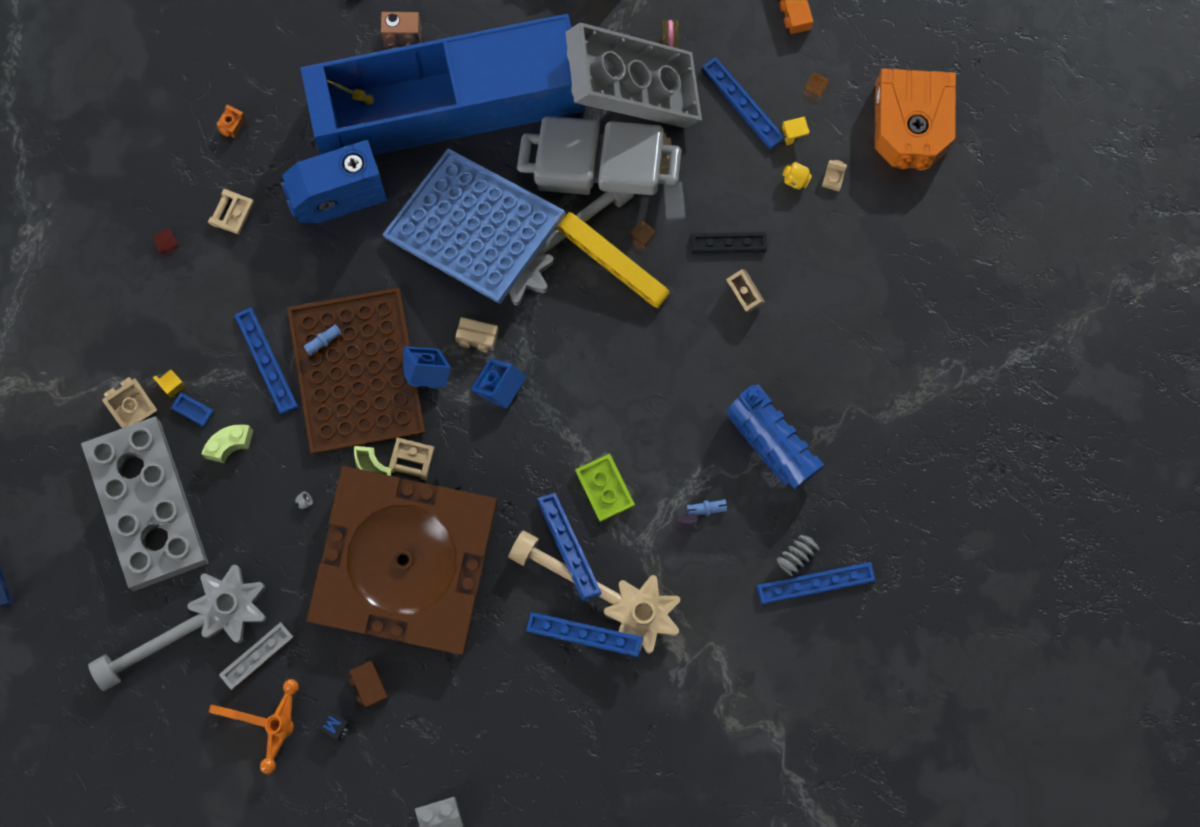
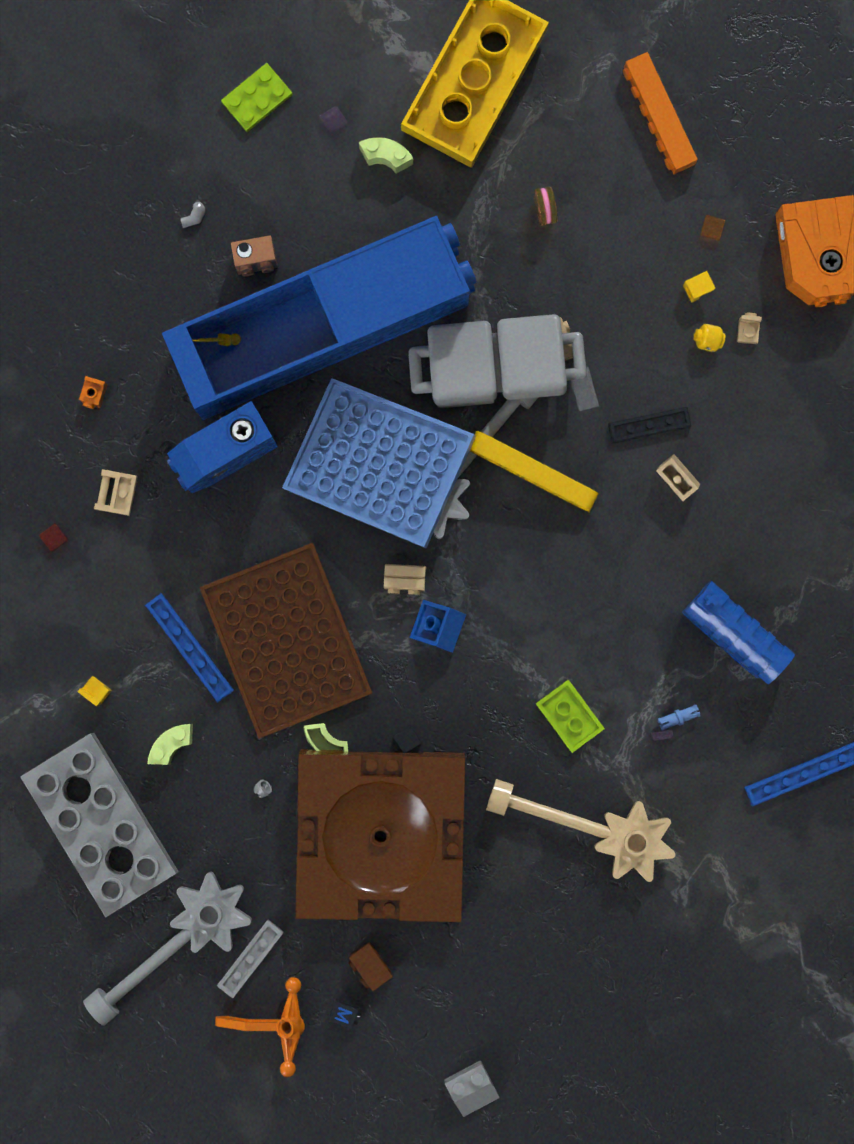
camera: 10 degrees left, 10 degrees up
(128, 403) = (58, 722): tan plate -> none
(192, 410) = (125, 714): blue tile -> none
(322, 340) = (245, 617): medium blue pin -> none
(414, 453) = (366, 717): tan plate -> none
(425, 367) = (358, 625): blue slope -> none
(569, 547) = (546, 787): blue tile -> none
(585, 634) = (580, 875): blue tile -> none
(632, 76) = (520, 270): light grey plate -> none
(642, 233) = (557, 431): clear orange tile -> none
(743, 103) = (636, 264): blue tile -> none
(797, 554) = (781, 748): light grey piece -> none

